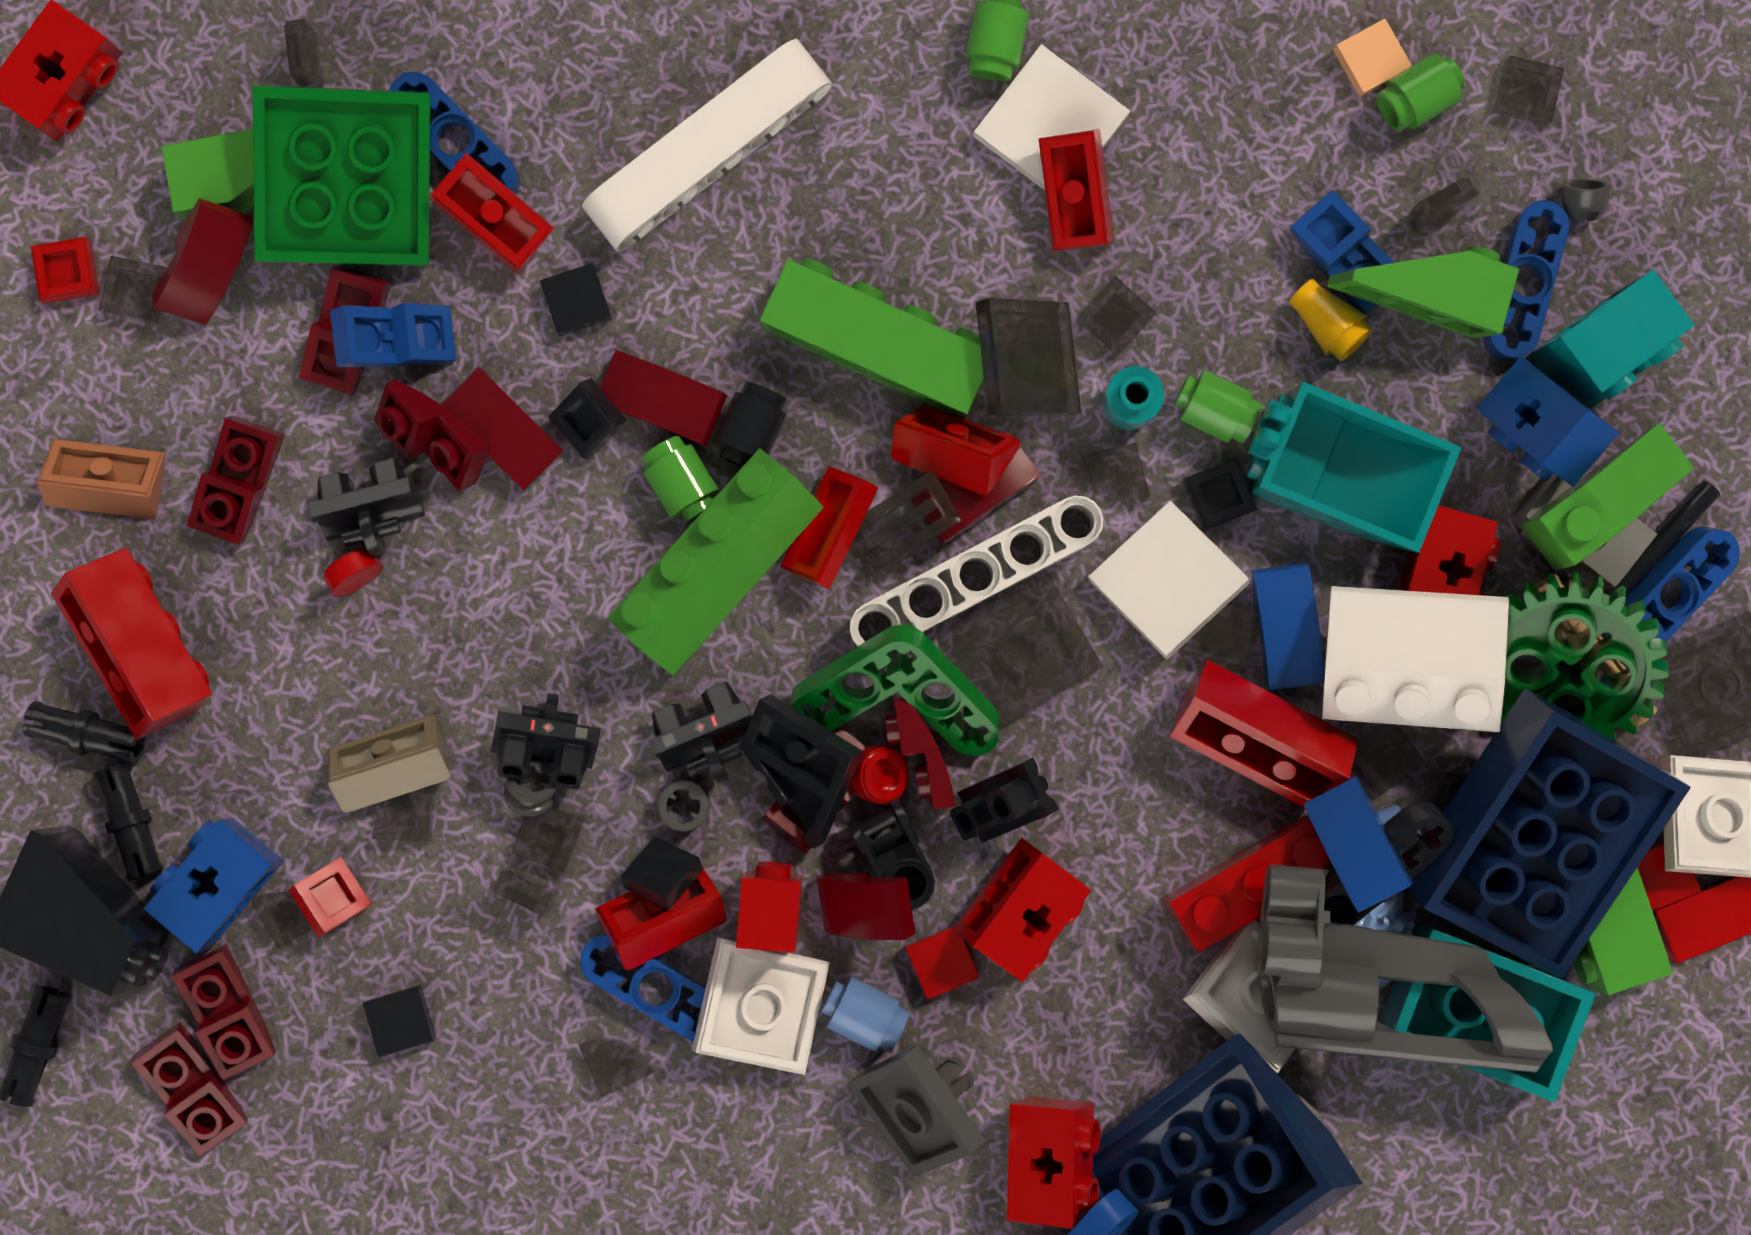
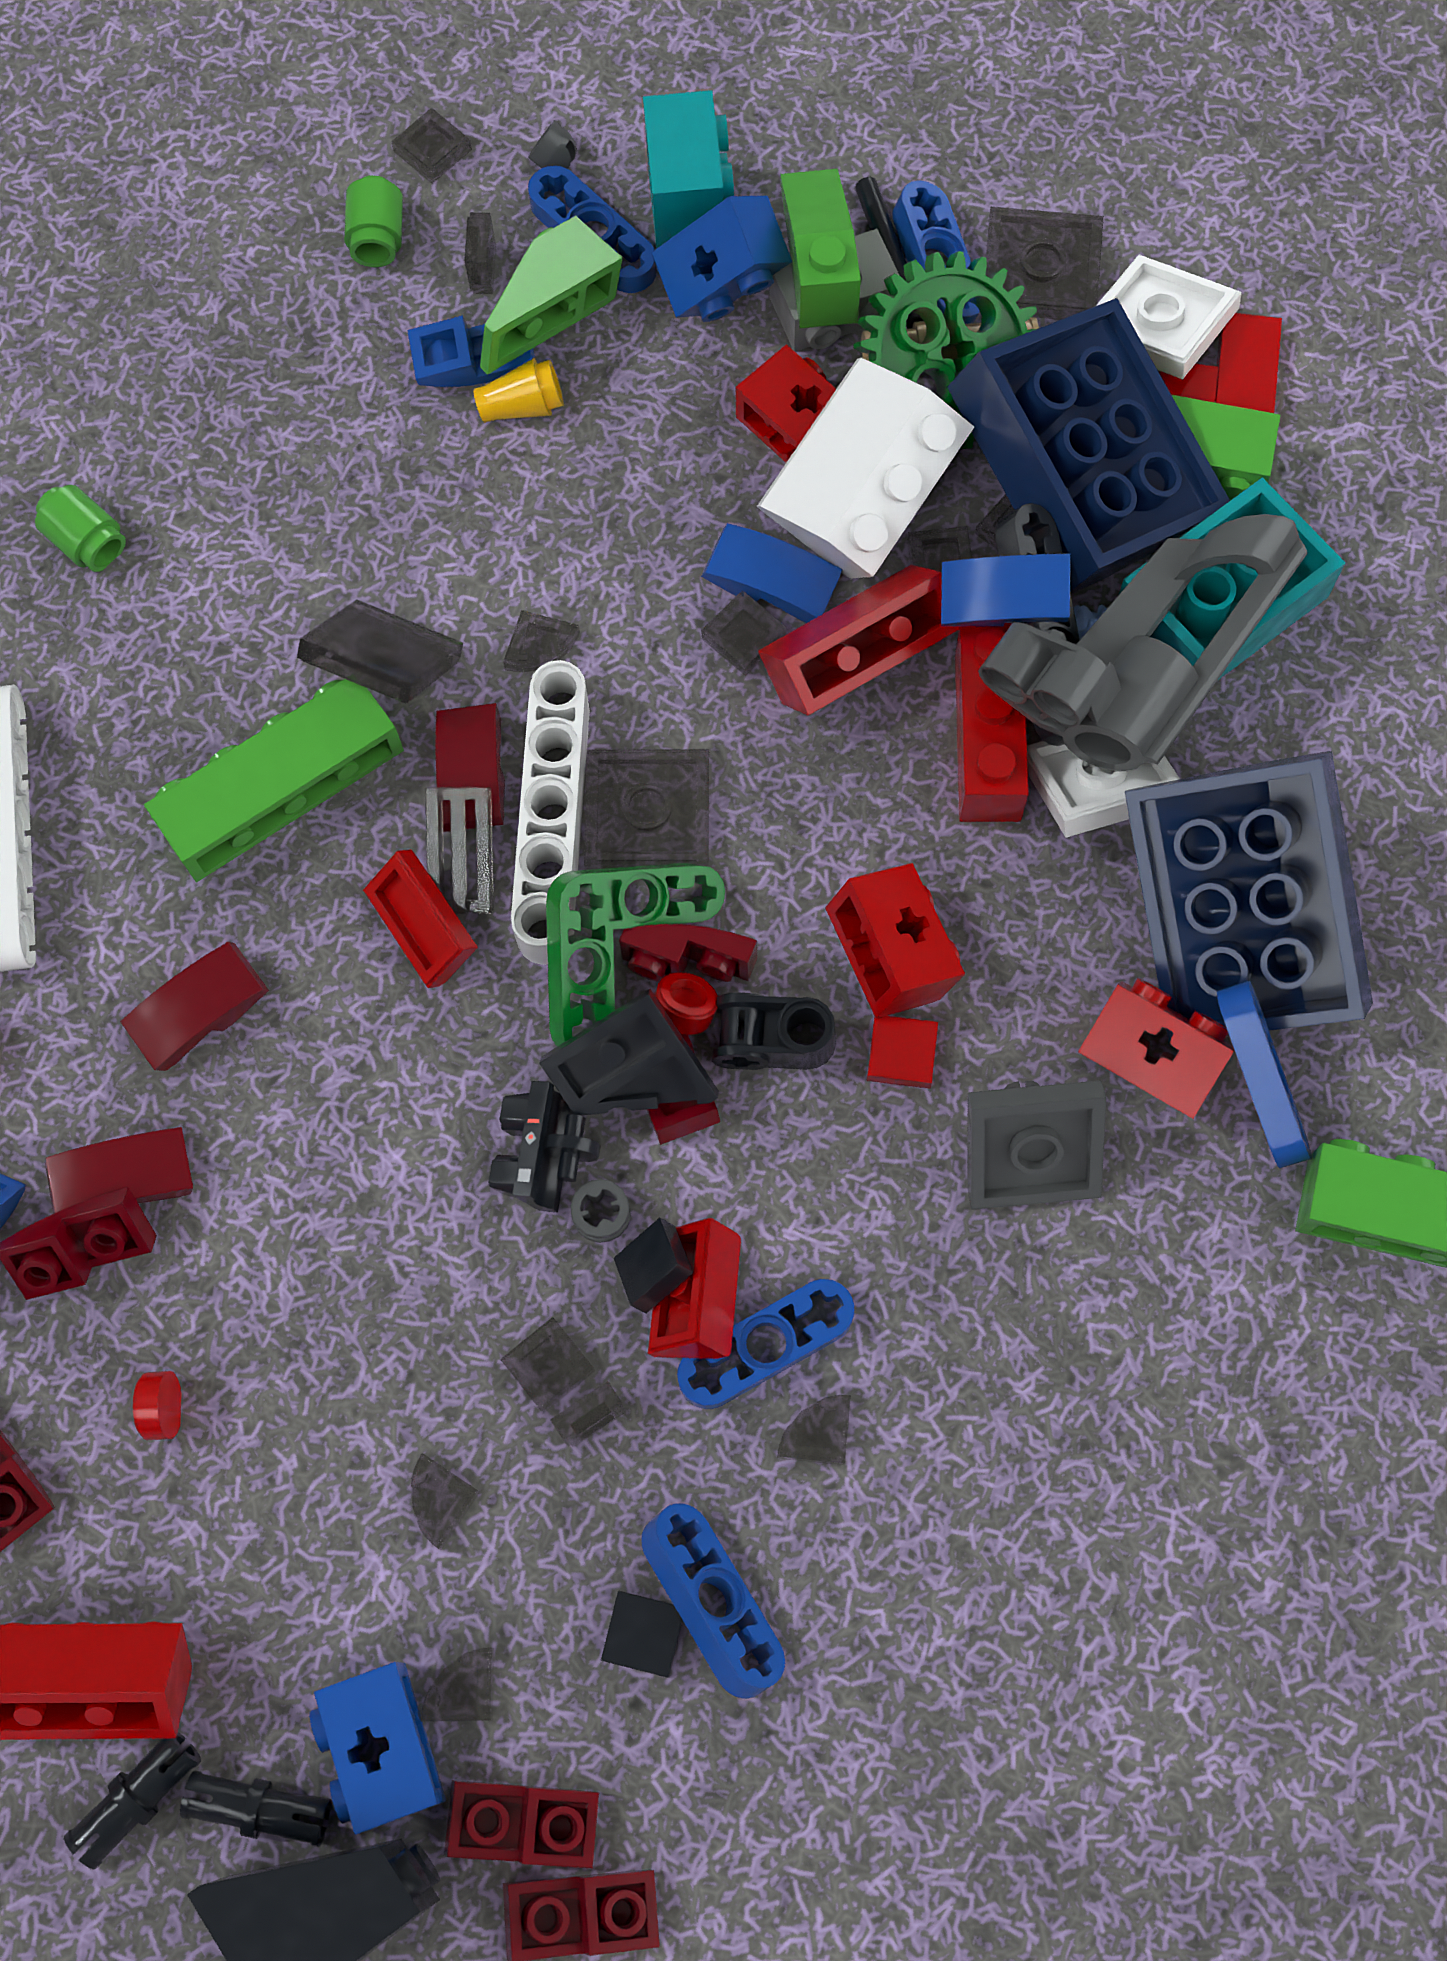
camera: 50 degrees left, 15 degrees down
(329, 897) = (470, 1629): tile -> none
(367, 512) = (106, 1353): black hips -> none
(387, 764) = (373, 1486): dark tan slope -> none
(455, 1081) = (718, 1570): none -> blue beam
(528, 803) = (487, 1350): dark grey bush -> none
(546, 737) = (448, 1302): black hips -> none
(576, 299) = (48, 1034): black tile -> none
(587, 418) = (165, 1085): black tile -> none
(679, 479) = (282, 1029): bright green brick -> none
(715, 562) = (382, 1037): bright green brick -> none
(750, 423) = (276, 934): black brick -> none
(760, 1007) = (843, 1245): white tile -> none
(769, 908) = (750, 1168): red brick -> none
(865, 1015) = (912, 1148): medium blue brick -> none
(866, 906) = (803, 1080): dark red slope -> none
(953, 448) = (418, 761): red slope -> none
(1003, 802) = (781, 896): black hips -> none
(1046, 102) = (188, 528): white tile -> none
(1076, 190) = (259, 532): red slope -> none
(1116, 316) = (397, 567): clear smoke tile -> none
(1123, 412) = (477, 583): teal brick -> none
(1168, 580) = (664, 648): white tile -> none
(1218, 407) = (535, 522): bright green brick -> none
(1220, 494) = (615, 568): black tile -> none
(1350, 467) = (660, 441): teal piece -> none
(1371, 57) = (317, 247): light nougat tile -> none

